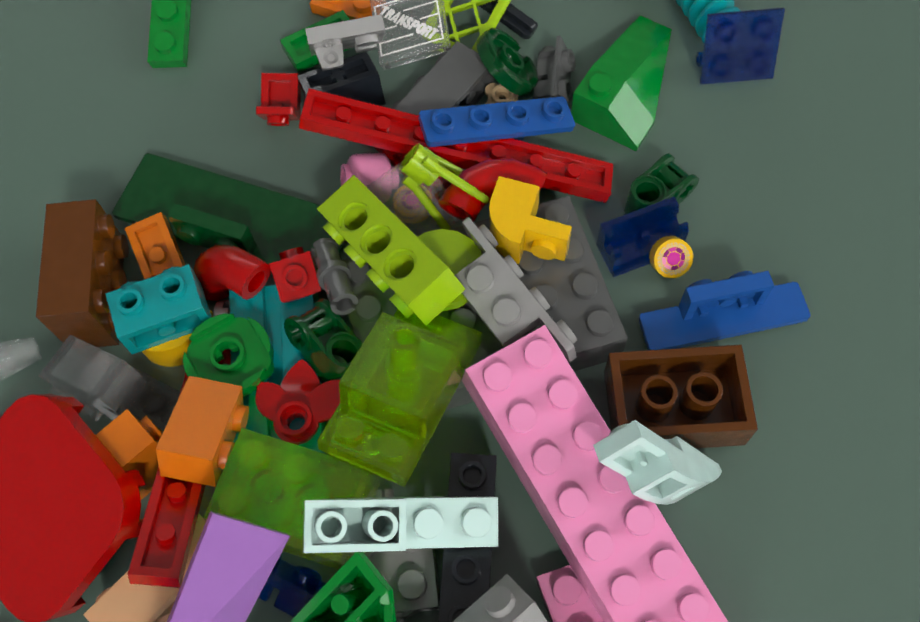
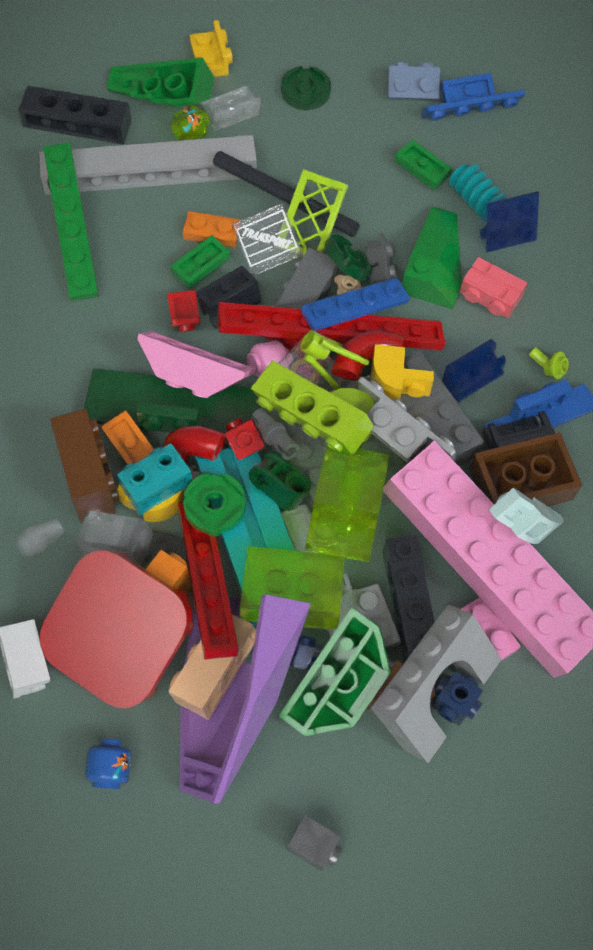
camera: 20 degrees left, 0 degrees up
(201, 431) = (218, 554): orange brick -> none
(257, 167) = (191, 366): none -> bright pink wedge
(298, 397) = (272, 522): red plate -> none
(331, 39) = (217, 265): light grey hinge -> none
(399, 523) = (374, 585): light aqua slope -> none
(659, 183) = (476, 332): dark green piece -> none
(671, 257) = (496, 381): tile -> none
(683, 332) = (518, 431): none -> black hinge
(696, 130) = (493, 288): none -> coral brick
(759, 250) = (553, 366): none -> lime plate

